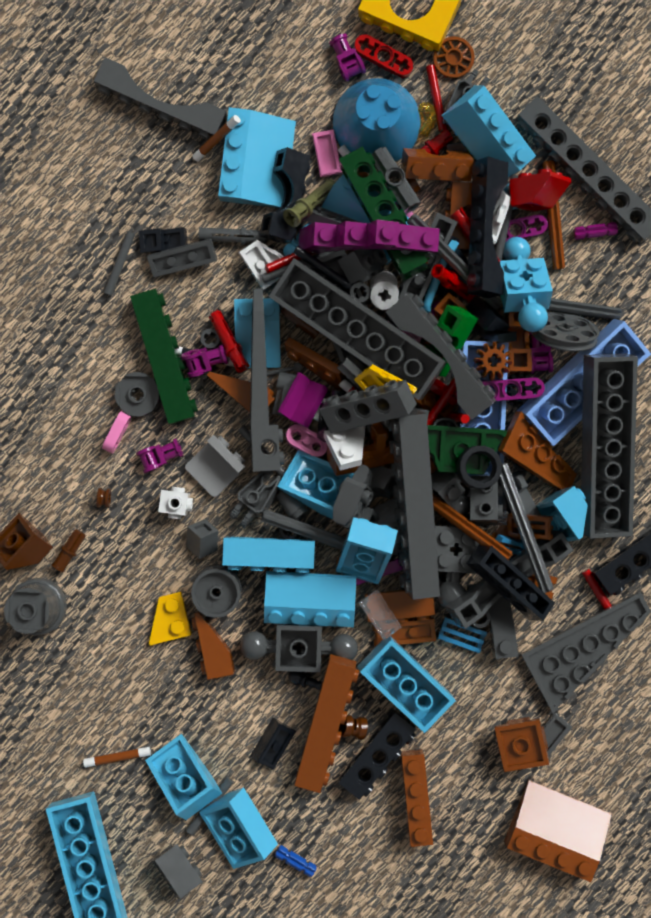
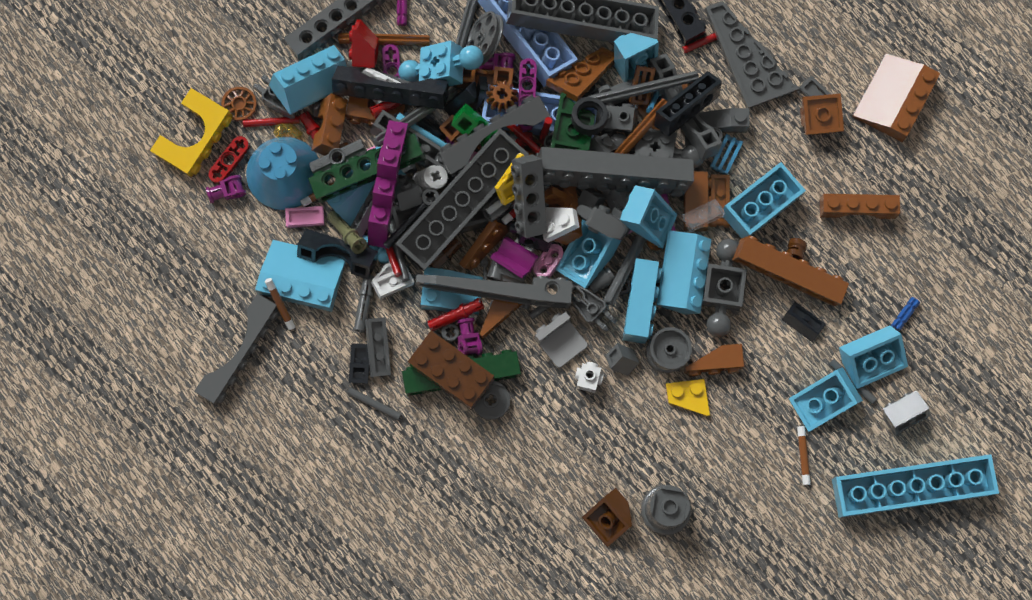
camera: 85 degrees left, 10 degrees down
(68, 550) = (620, 476): reddish brown axle -> none
(103, 497) = (577, 439): reddish brown bush -> none
(116, 432) = (521, 421): bright pink beam -> none
(157, 455) = (546, 388): magenta connector -> none
(158, 343) = (451, 370): none -> reddish brown brick
(303, 679) = (750, 290): black bar -> none
(363, 786) = (795, 218): black brick -> none
(451, 281) = (426, 122): red pin -> none

